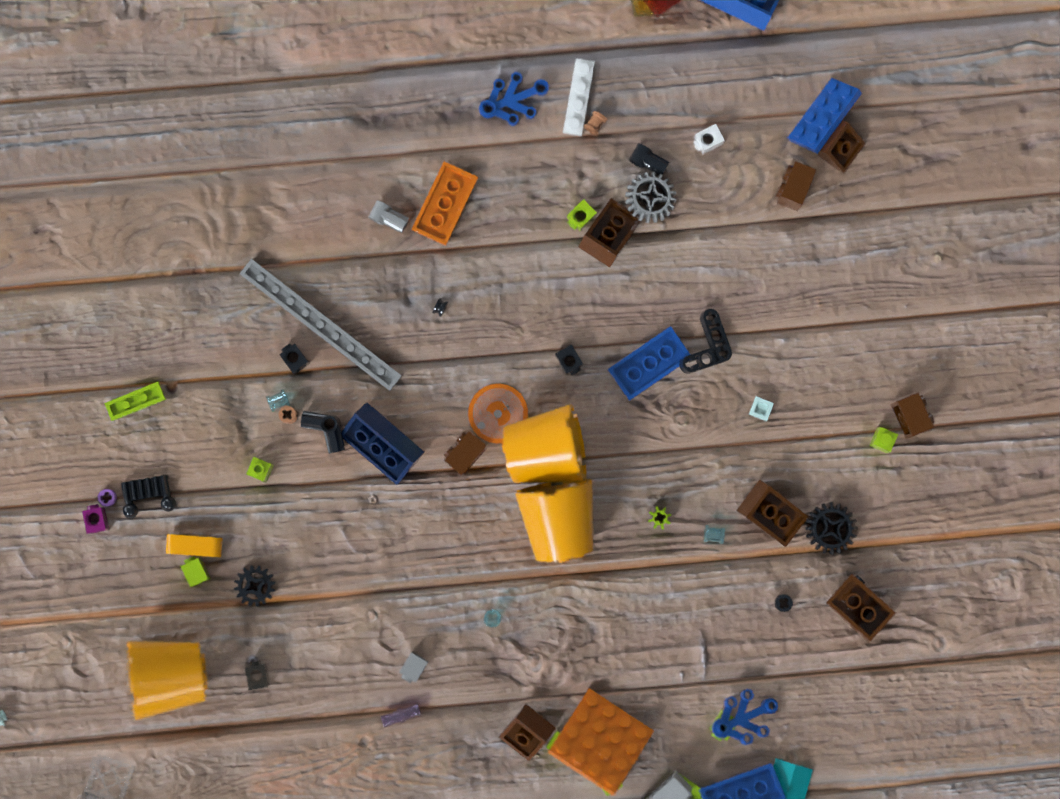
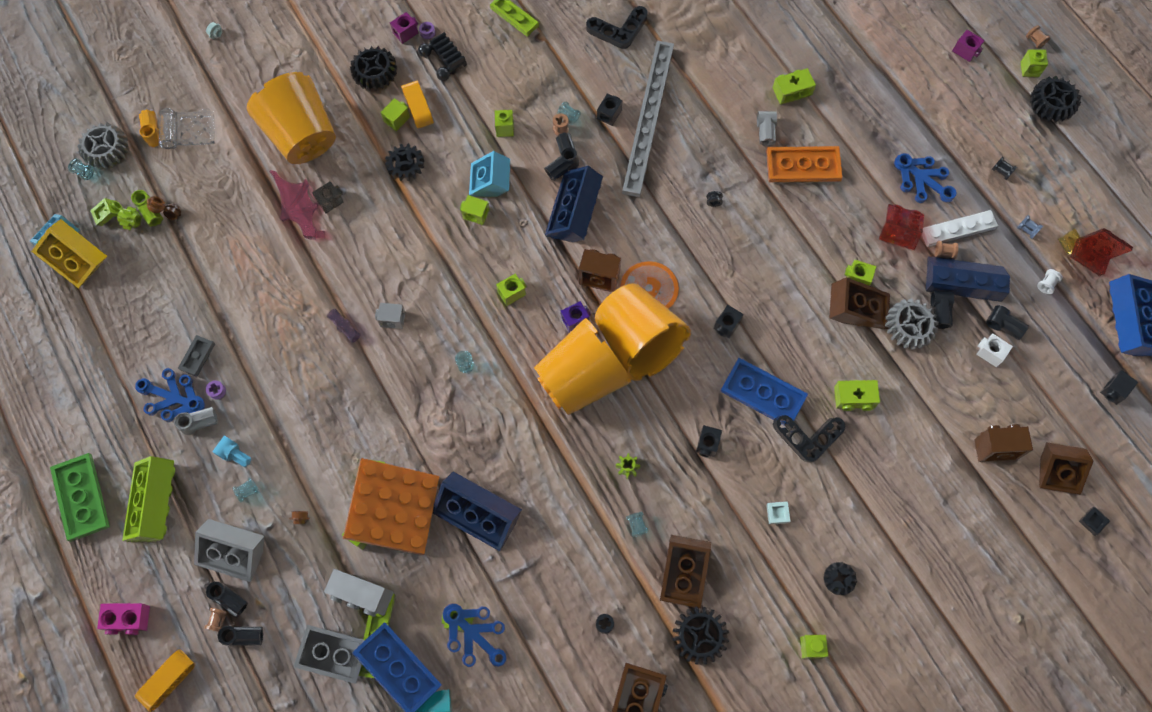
camera: 70 degrees right, 15 degrees down
(115, 581) = (372, 61): none -> black gear
(209, 299) = (622, 32): none -> black beam
(248, 709) = (297, 206): none -> clear pink animal
(310, 510) = (490, 175): none -> medium azure slope
(340, 540) = (474, 209): none -> lime brick
(360, 177) = (794, 86): none -> lime brick
(447, 549) = (511, 296): none -> lime brick
(502, 504) = (567, 313): none -> dark purple brick
(527, 732) = (374, 438): reddish brown slope -> none
(541, 20) = (1004, 168): none -> black bush
(552, 148) = (902, 226): none -> clear red bracket
(609, 33) = (1029, 226): none -> sand blue bush
(630, 120) = (967, 279): none -> dark blue slope
(636, 669) = (476, 510): none -> dark blue slope
(670, 49) = (1049, 282): none -> white bush
(670, 427) = (712, 434): none -> black brick
(685, 114) = (1003, 320): none -> black piece
(692, 272) = (865, 389): none -> lime brick
(793, 53) = (1119, 387): none -> black brick
(824, 115) = (1083, 441): blue plate -> none
(832, 392) = (837, 587): none -> black gear
(892, 146) = (1094, 521): none -> black tile
(913, 415) = (854, 663): reddish brown brick -> none

